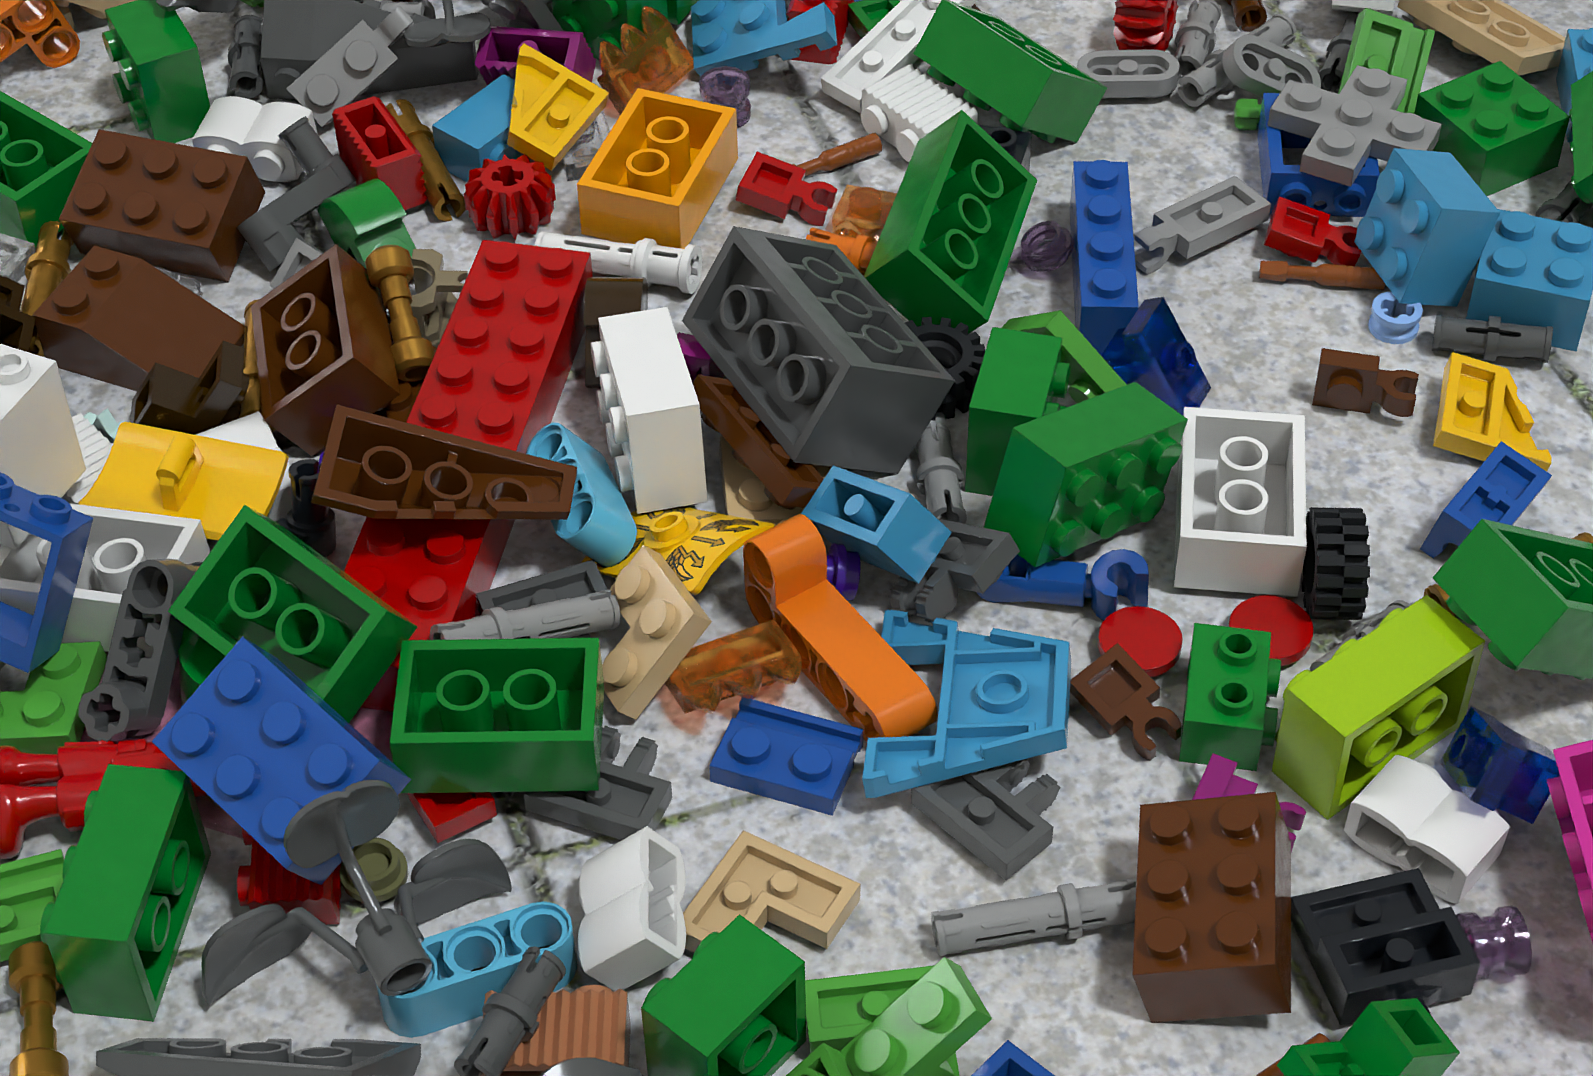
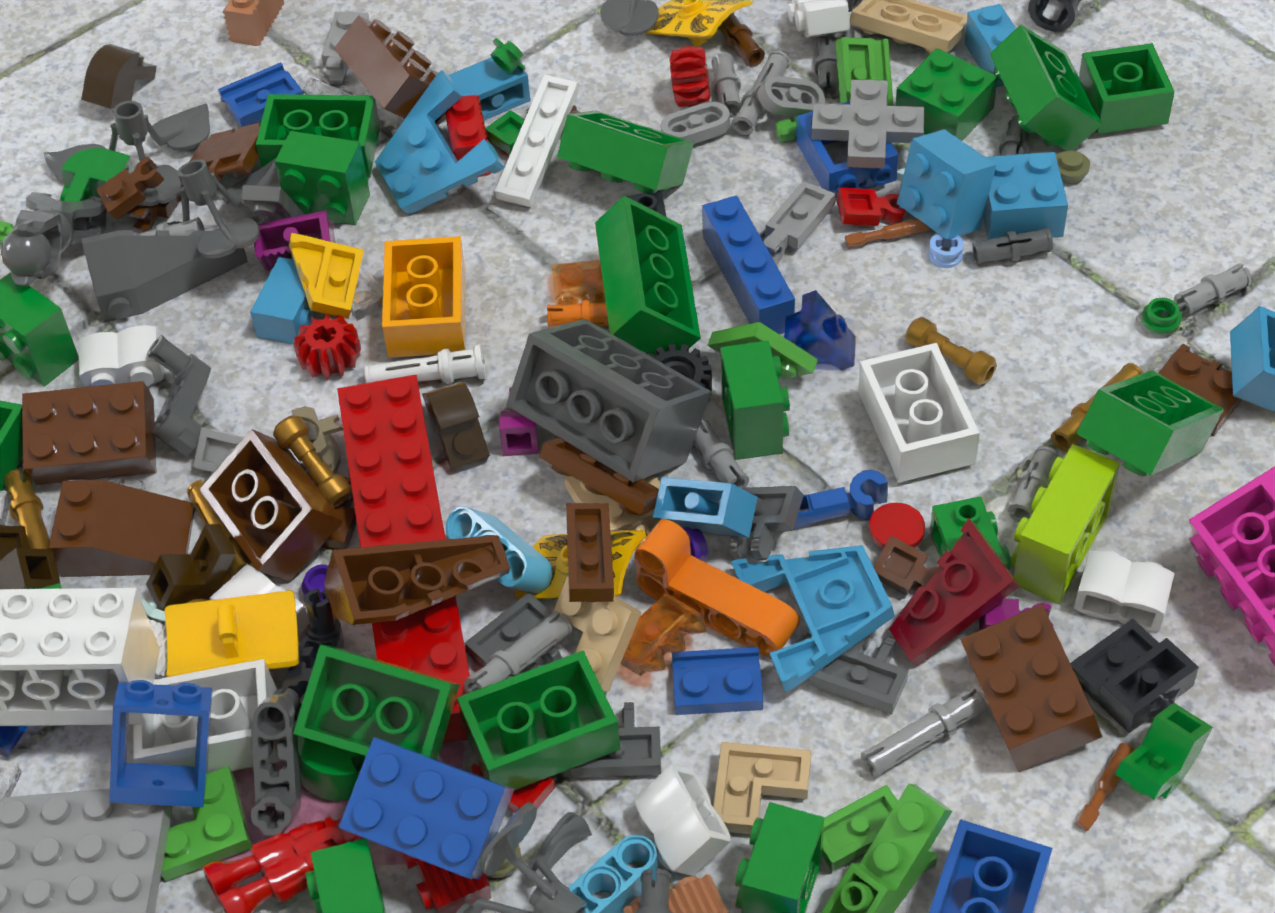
camera: 20 degrees left, 5 degrees up
(245, 57) = (76, 296): dark grey pin -> none
(350, 66) = (165, 284): light grey plate -> none
(365, 219) = (245, 398): green brick -> none
(379, 149) = (223, 346): red brick -> none
(439, 183) = (238, 327): pearl gold pin -> none
(647, 59) = (370, 217): clear orange plate -> none
(649, 410) = (517, 474): white brick -> none
(678, 524) = (589, 552): none -> reddish brown plate
(727, 88) = (435, 220): clear purple wheel -> none
(780, 186) = (506, 282): red plate -> none
(844, 154) = (527, 249): dark orange piece -> none
(908, 108) = (573, 199): white brick -> none
(1046, 246) = (706, 270): clear purple plate -> none
(1085, 472) = (822, 428): green brick -> none
(1173, 746) = (961, 591): none -> dark red wing
(1286, 620) = (972, 483): red piece -> none
(1336, 564) = (1000, 436): black tyre -> none
(1354, 381) = (946, 304): reddish brown plate -> none
(1361, 473) = (977, 366): none -> pearl gold piece
(1481, 410) = (1032, 303): yellow wing -> none
(1495, 492) = (1064, 365): blue hinge -> none
(1499, 766) = (1150, 536): clear blue brick -> none
(1499, 941) = (1199, 645): clear purple wheel -> none

